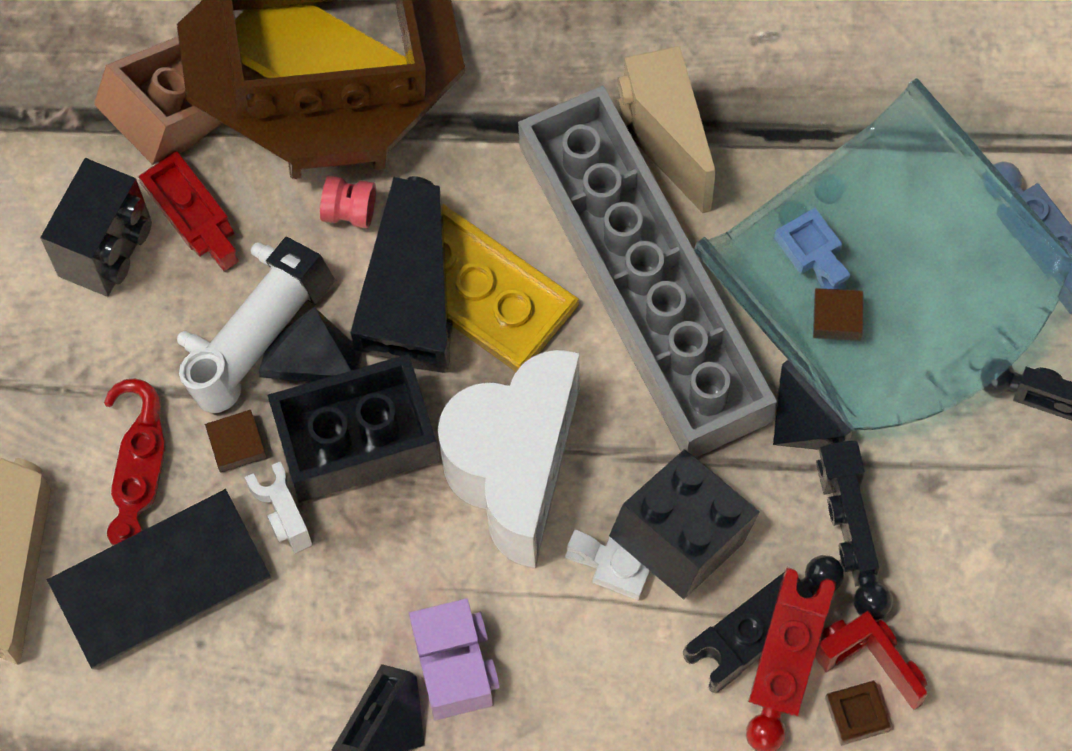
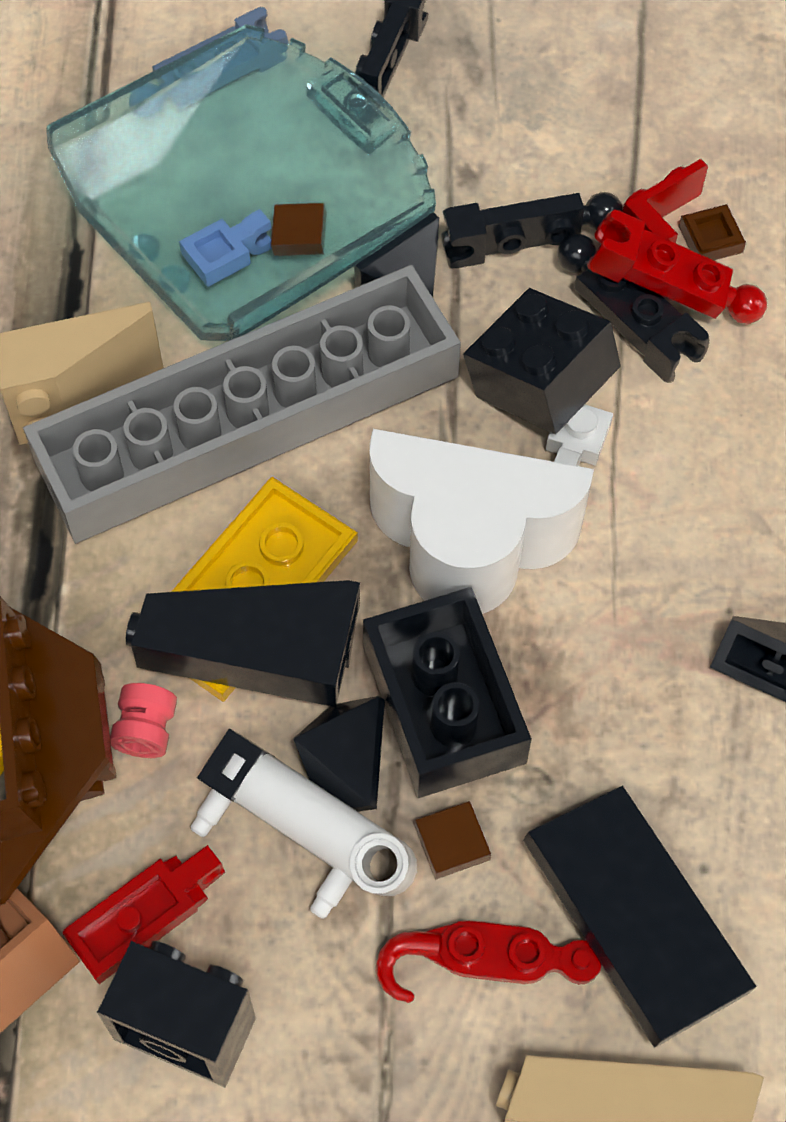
camera: 95 degrees left, 5 degrees down
(286, 519) = (551, 767): white plate -> none
(452, 660) = (719, 579): lavender piece -> none

